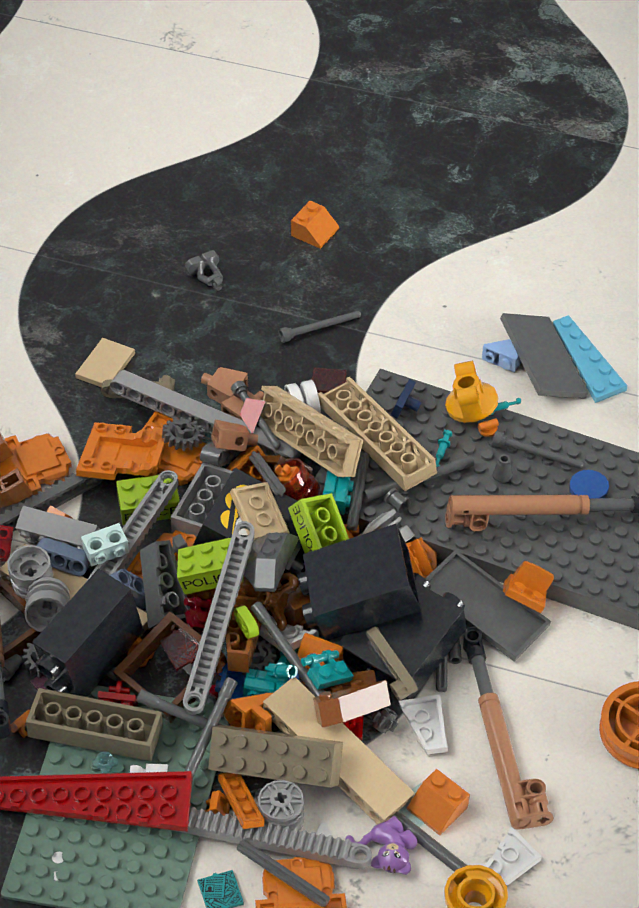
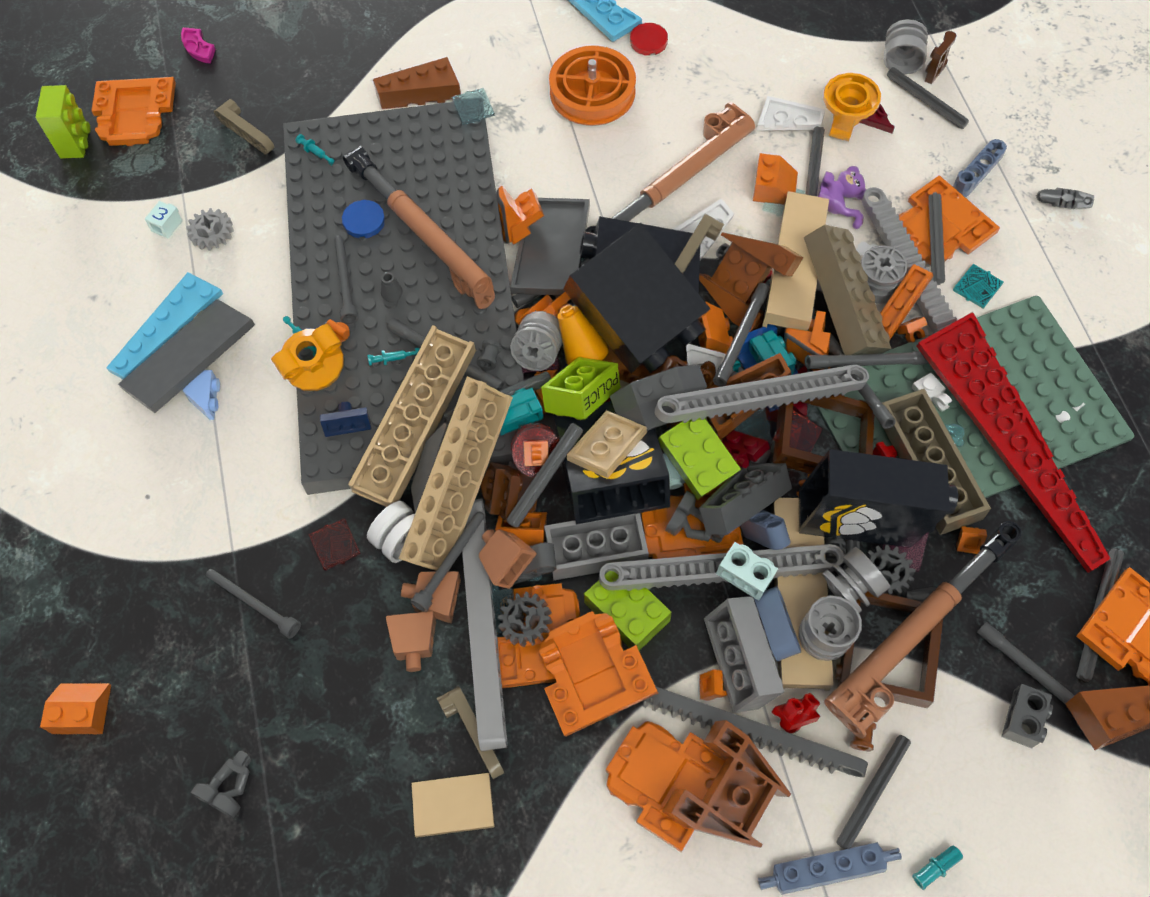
camera: 120 degrees left, 15 degrees up
(246, 622) = (750, 368): lime beam -> none
(251, 412) = (451, 564): sticker -> none
(281, 670) = (765, 330): teal axle -> none
(327, 675) = (735, 295): teal plate -> none

